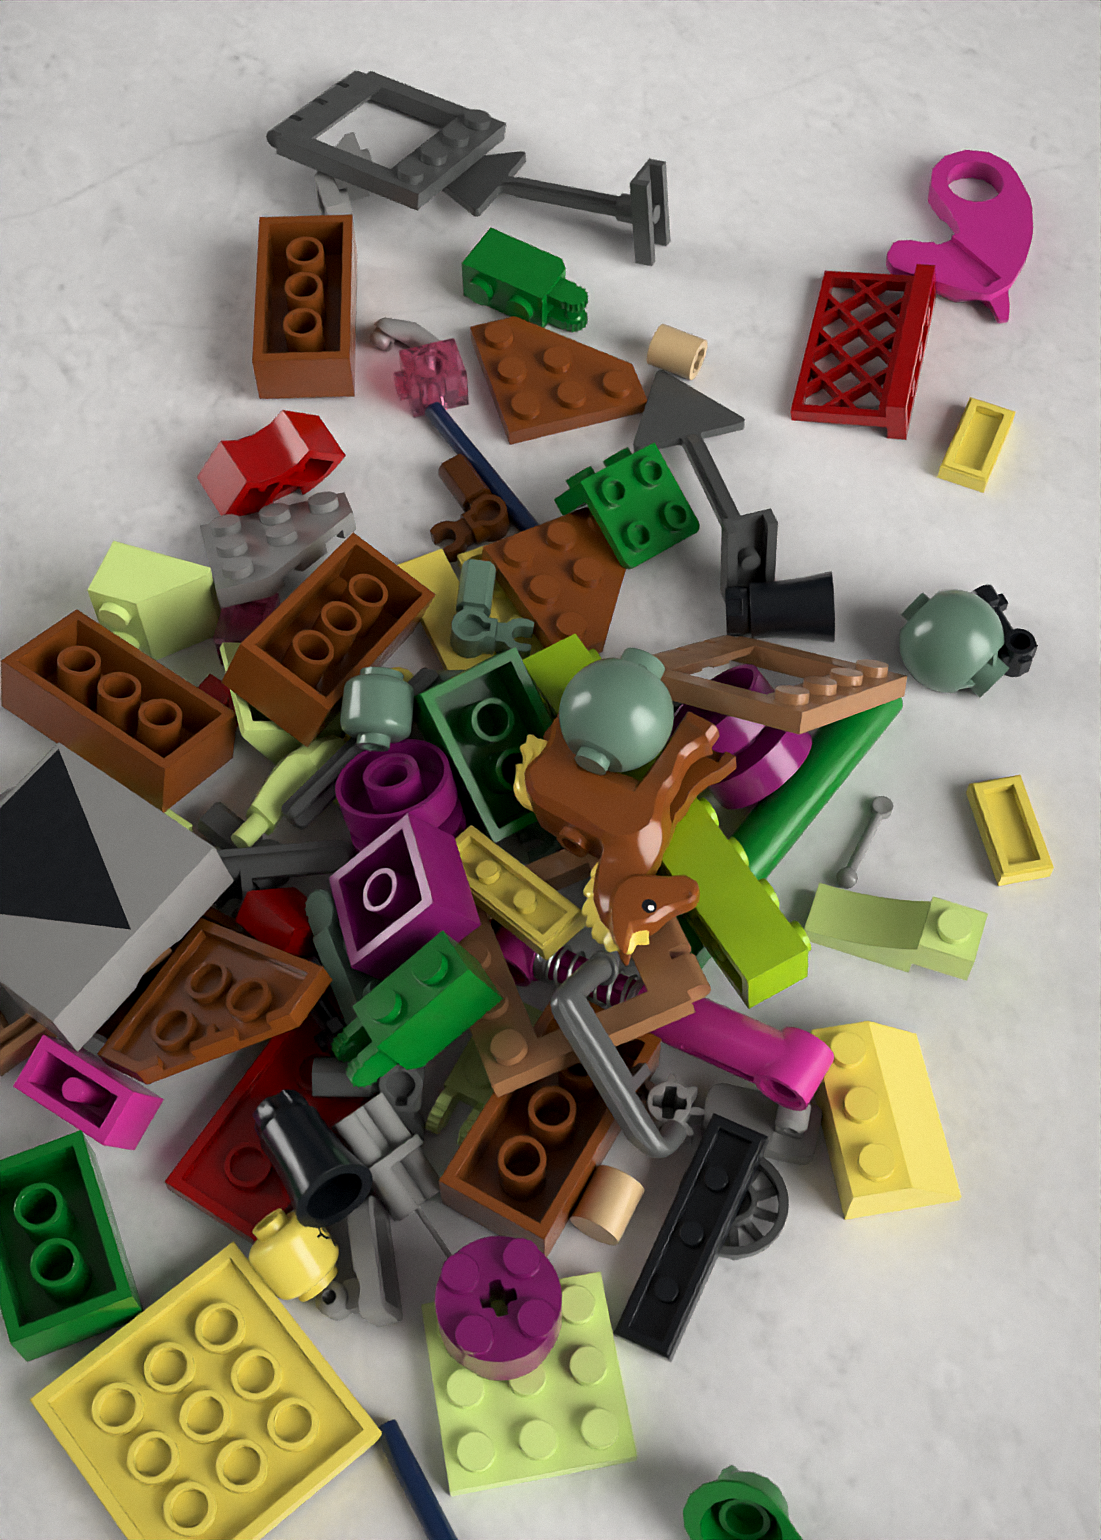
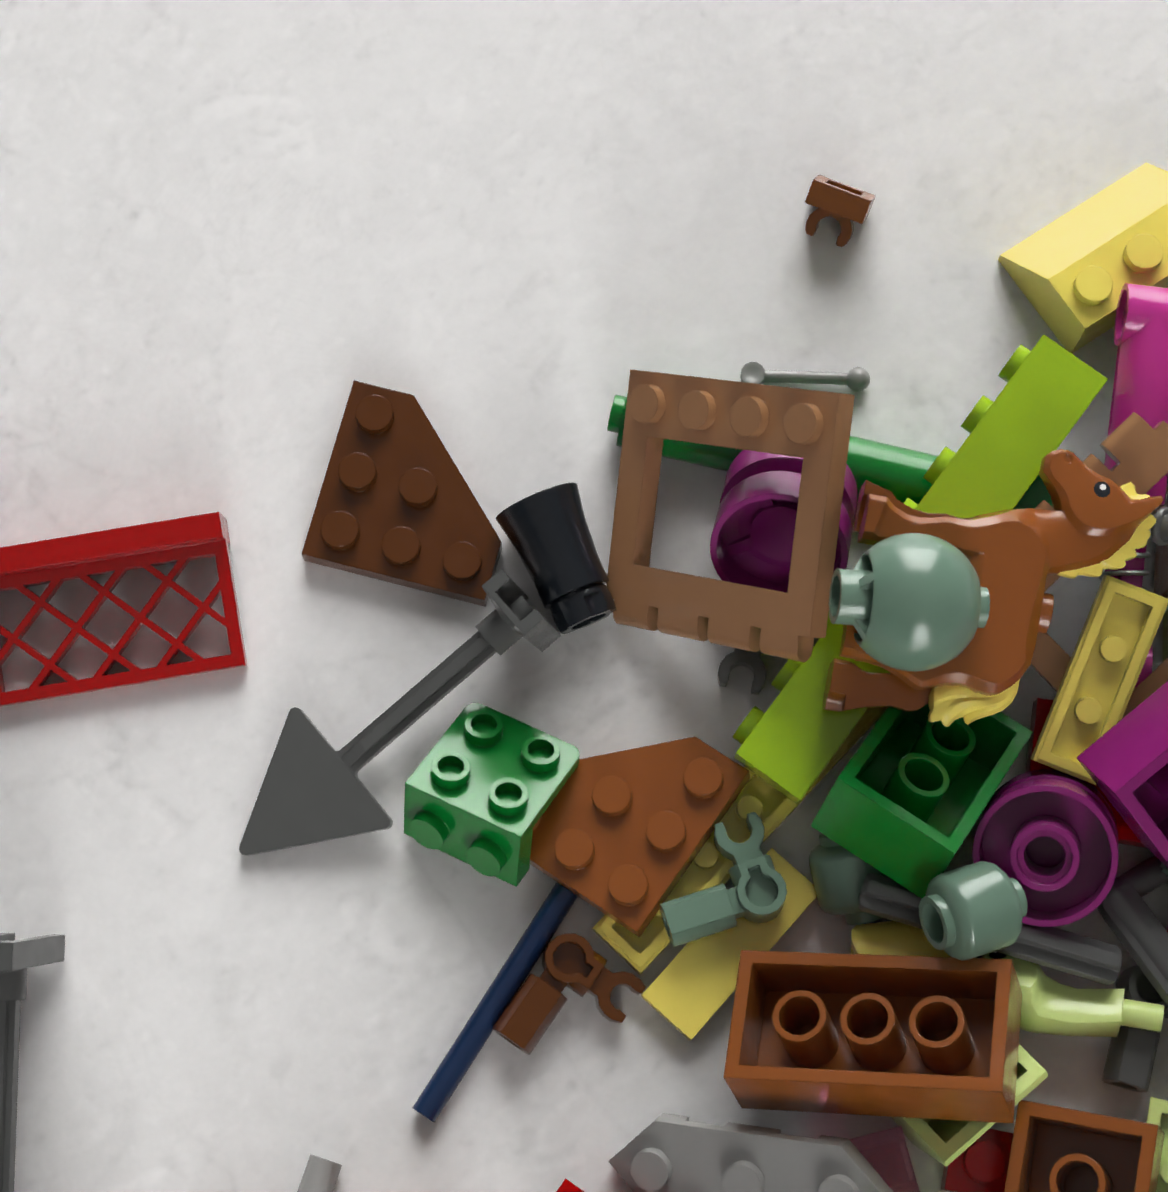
camera: 115 degrees left, 15 degrees up
(432, 375) = (360, 1115): clear pink brick -> none
(523, 283) = (175, 1085): green hinge -> none
(550, 381) = (311, 987): dark orange plate -> none
(677, 351) = (211, 835): tan piece -> none
(876, 538) = (400, 504): none -> reddish brown plate
(897, 931) = (906, 304): yellowish green slope -> none
(952, 642) = (527, 358): sand green brick -> none
(976, 444) = (204, 434): light yellow tile -> none
(1009, 830) = (722, 240): light yellow tile -> none
(1011, 917) = (837, 201): none -> dark orange tile
(1018, 643) = (498, 302): black bar -> none

